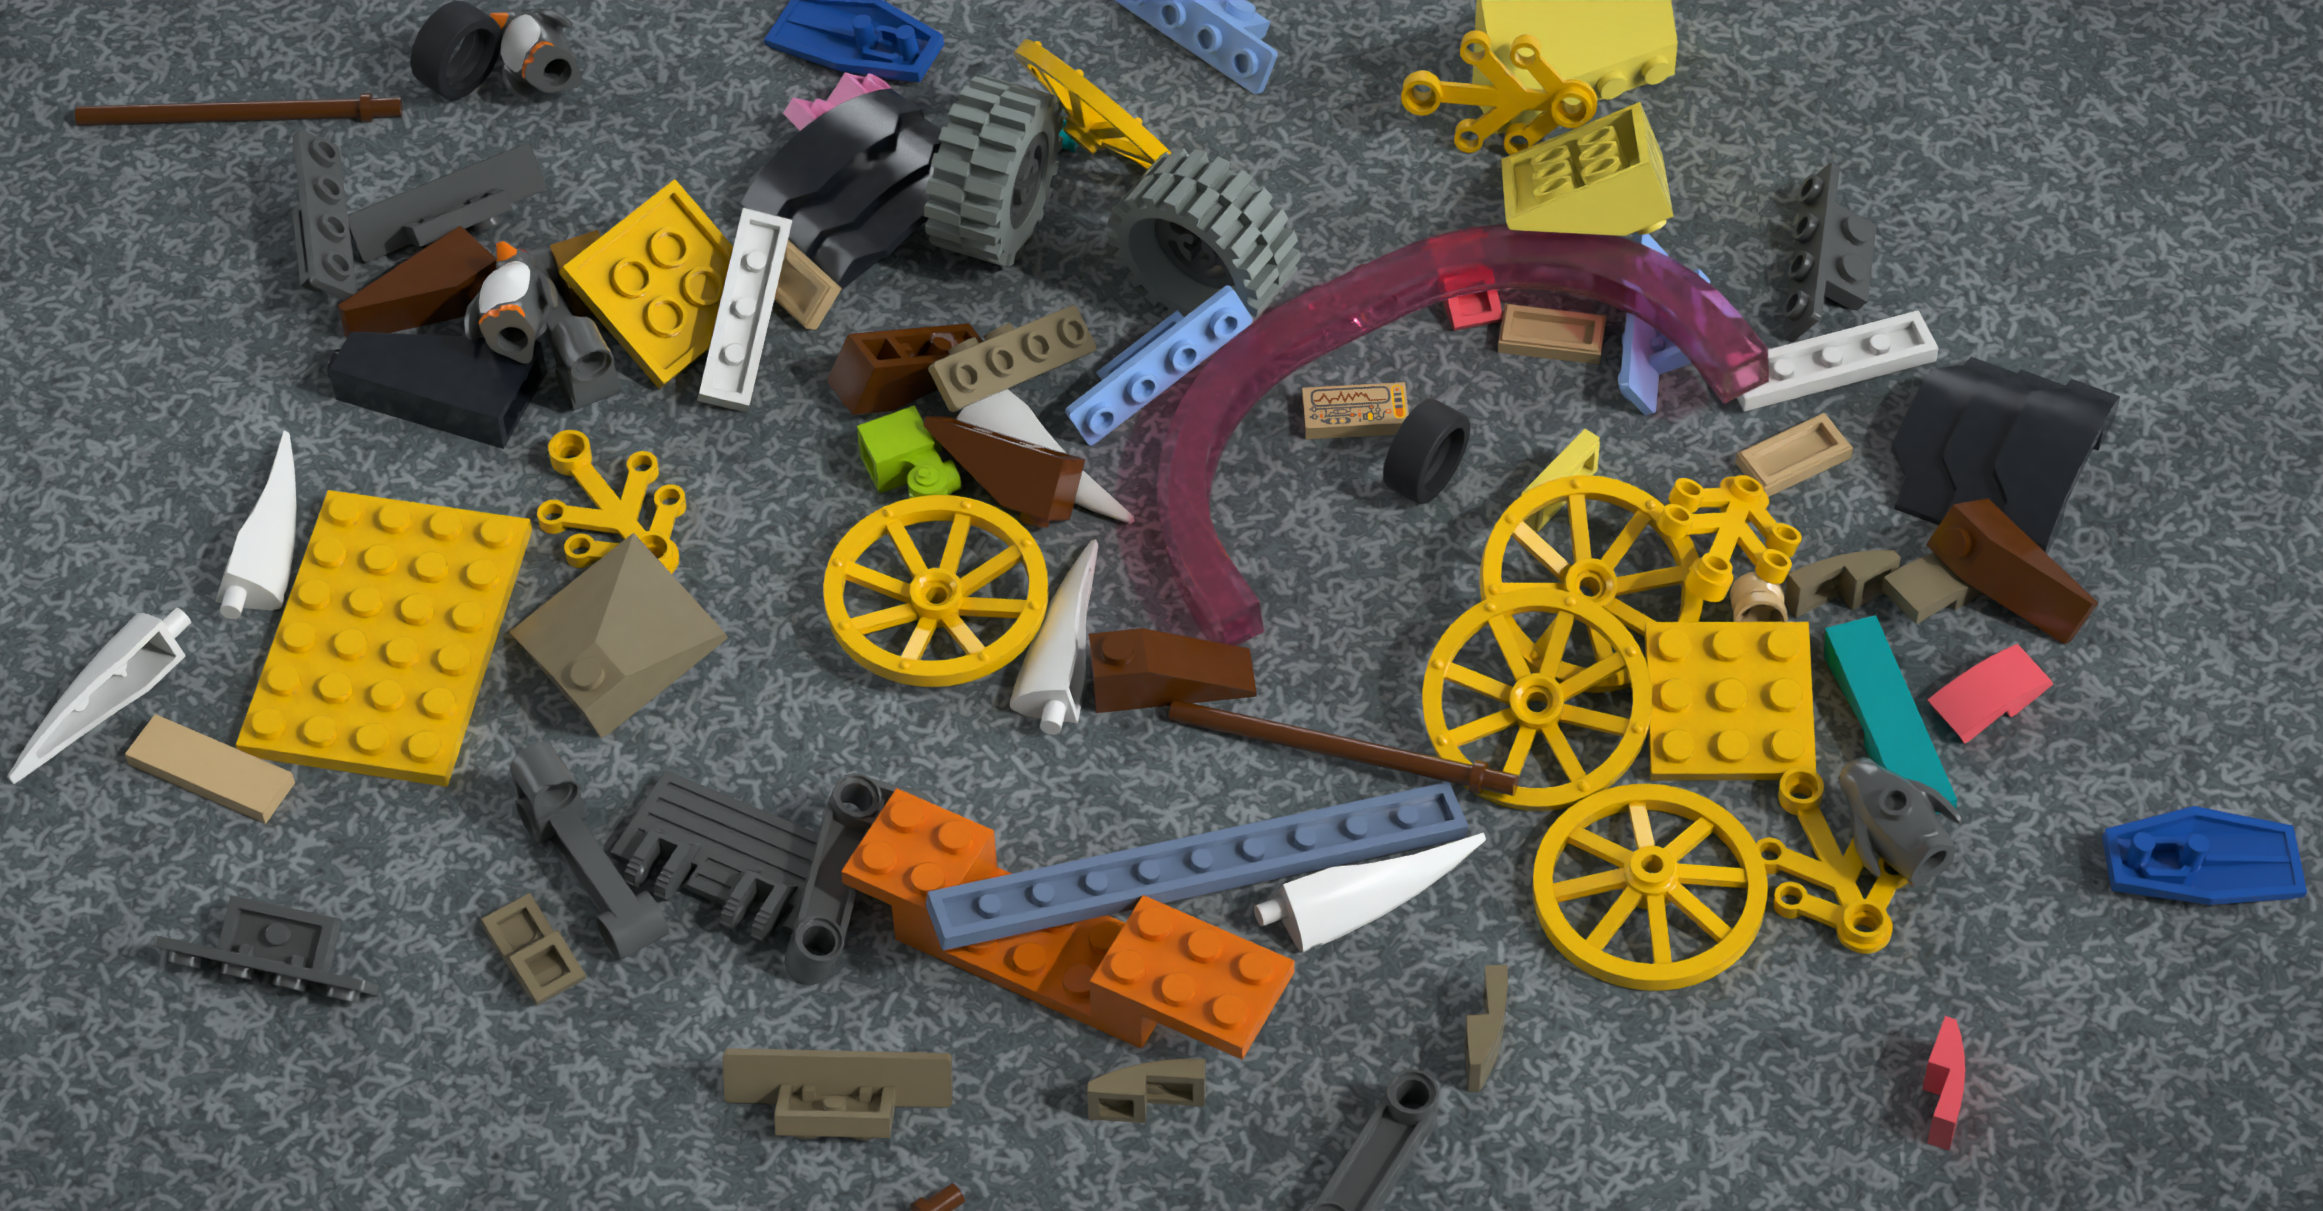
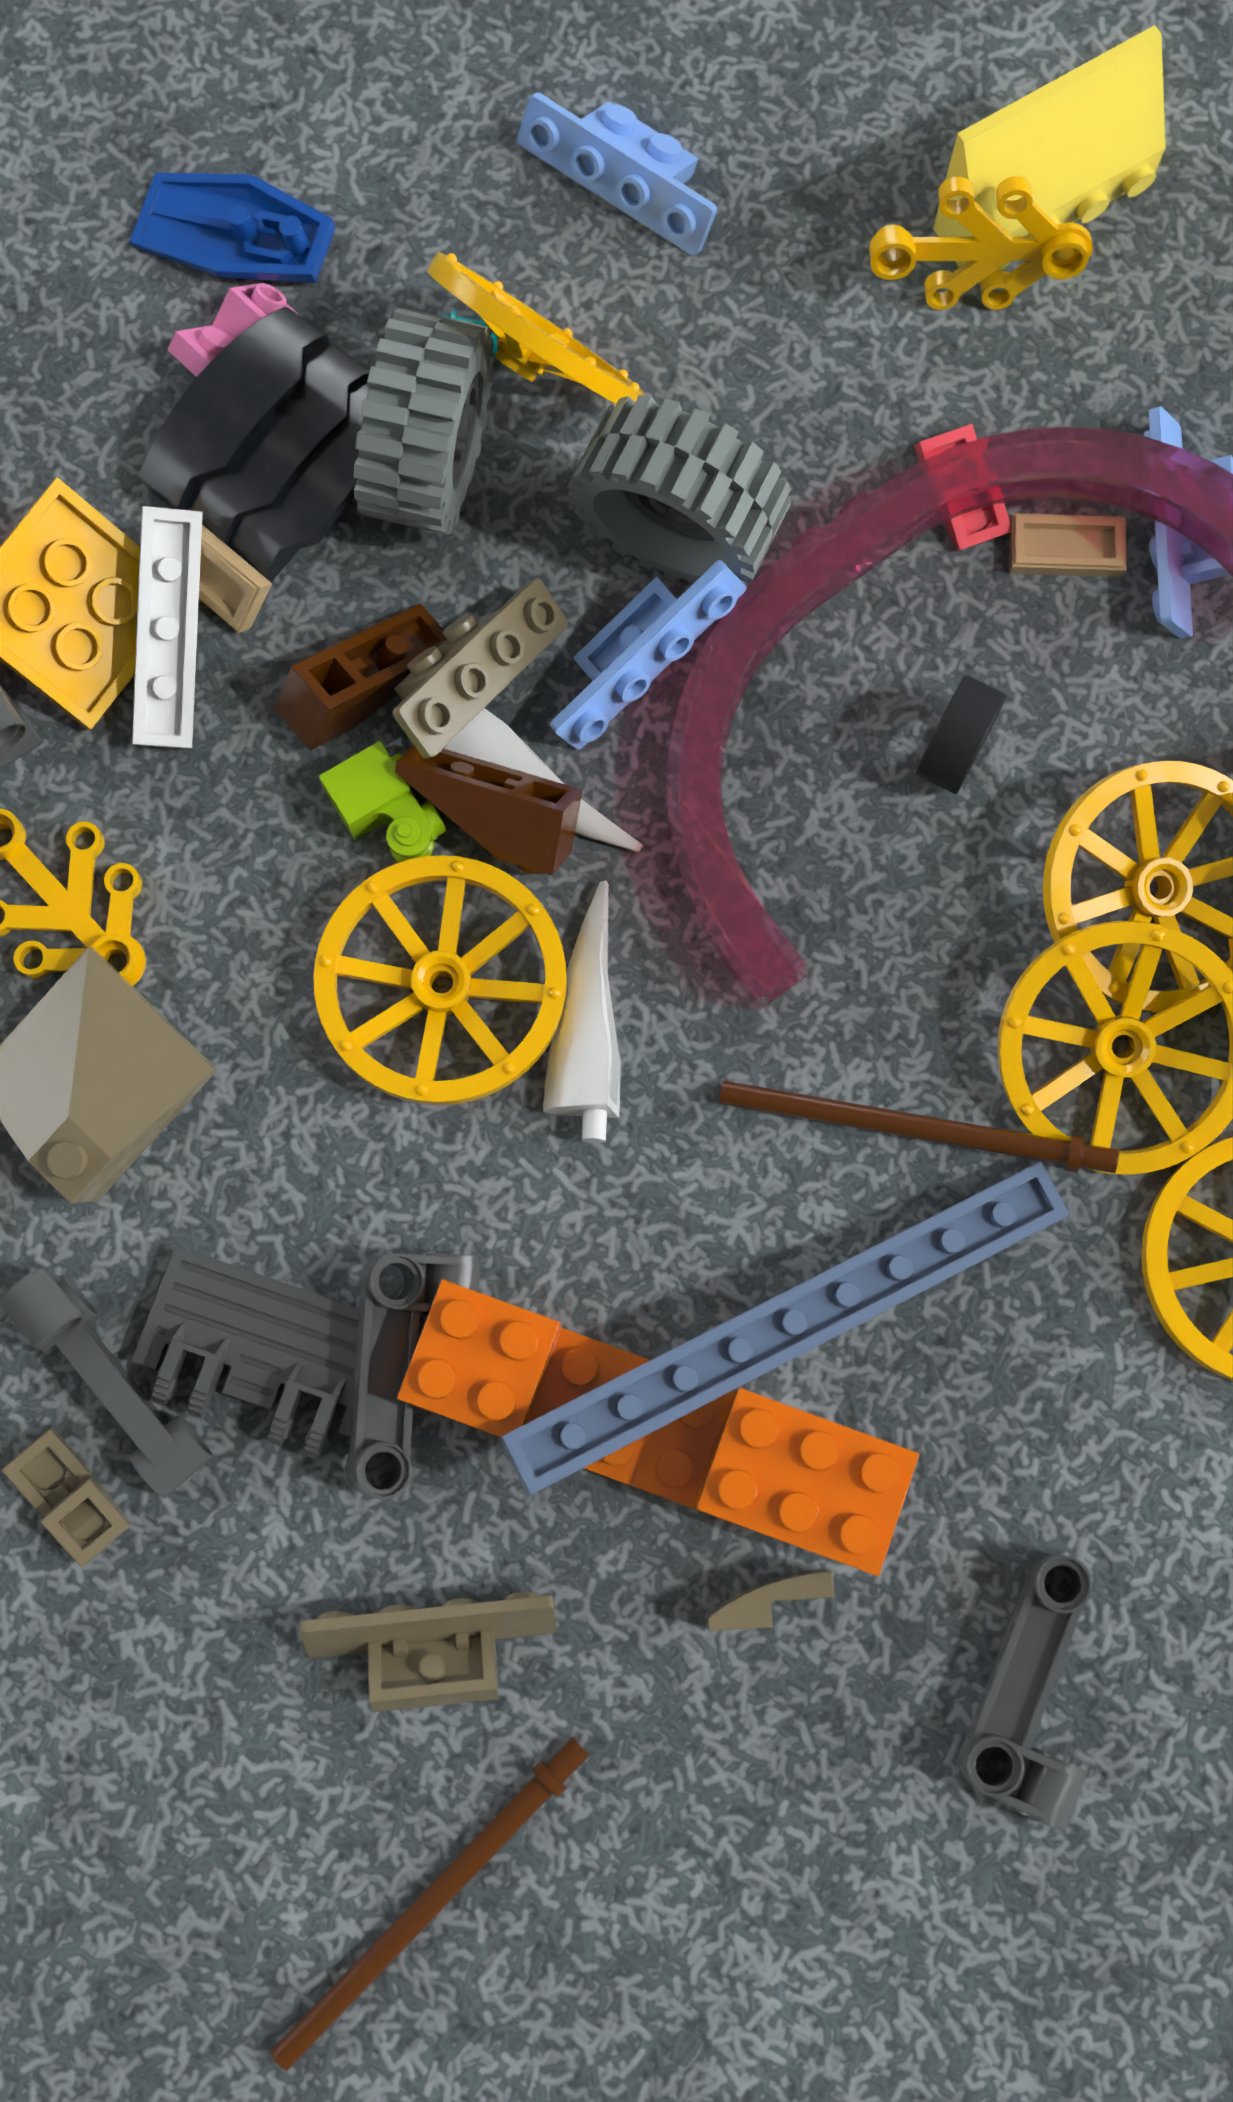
camera: 10 degrees left, 25 degrees up
(1156, 667) = (712, 1048): reddish brown slope -> none
(1350, 896) = (949, 1316): white piece -> none
(1354, 410) = (866, 673): tan tile -> none
(1486, 1030) = (1125, 1493): dark tan slope -> none
(1576, 459) = (1110, 743): light yellow tile -> none
(1590, 180) = (1099, 357): light yellow slope -> none

